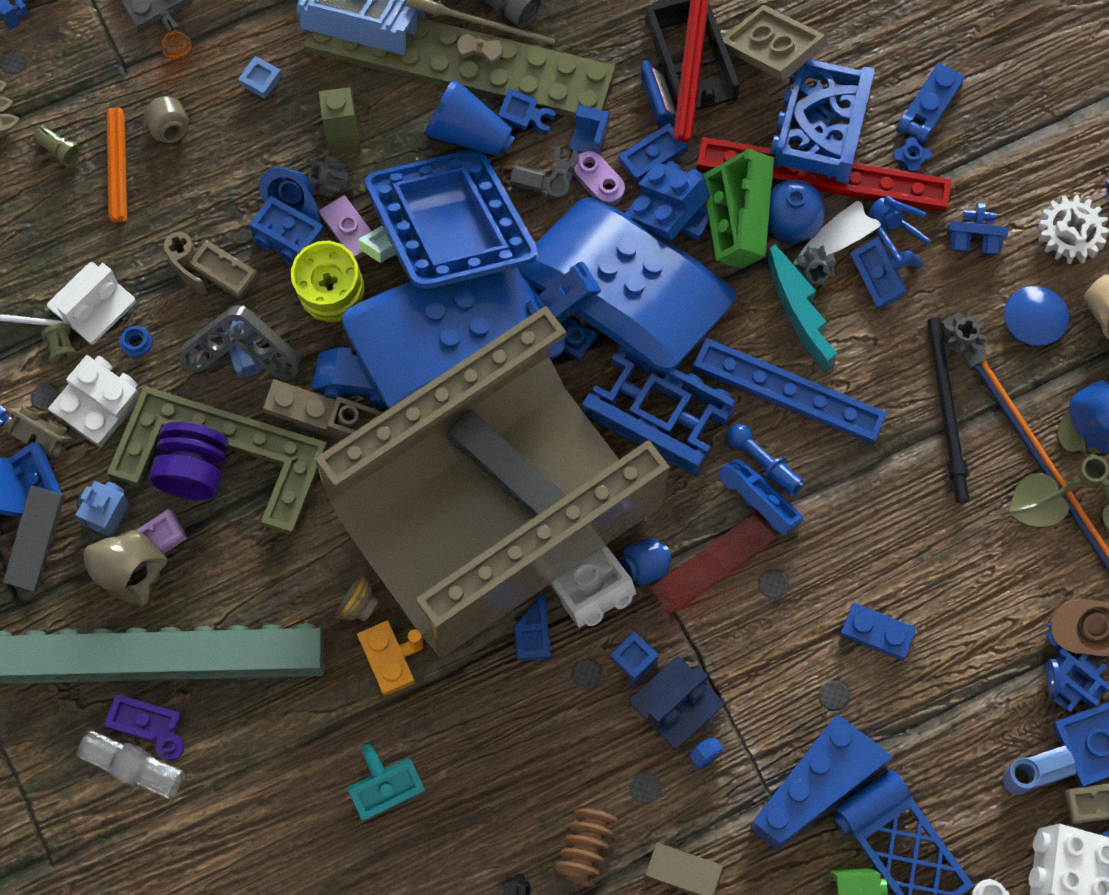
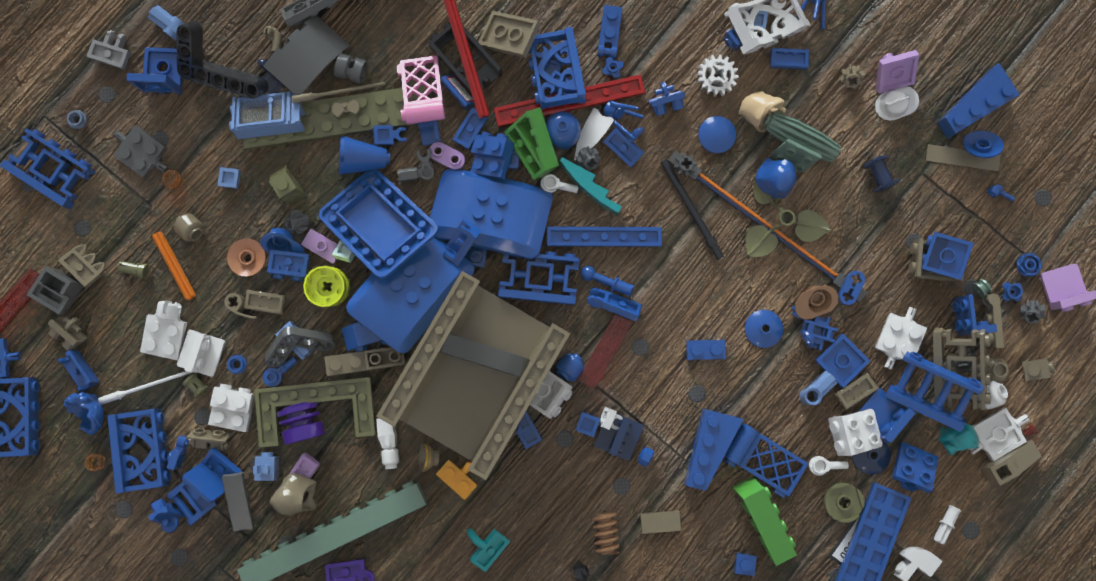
camera: 25 degrees left, 15 degrees up
(54, 248) = (164, 331): none -> white plate
(182, 382) = (272, 377): none -> blue plate
(226, 183) = (237, 257): none -> nougat dish
(308, 549) = (388, 439): none -> white piece
(597, 90) = (423, 108): none -> bright pink piece
(671, 662) = (608, 417): none -> white tile
(742, 281) = (551, 183): none -> white plate
(978, 652) = (754, 330): none -> blue dish

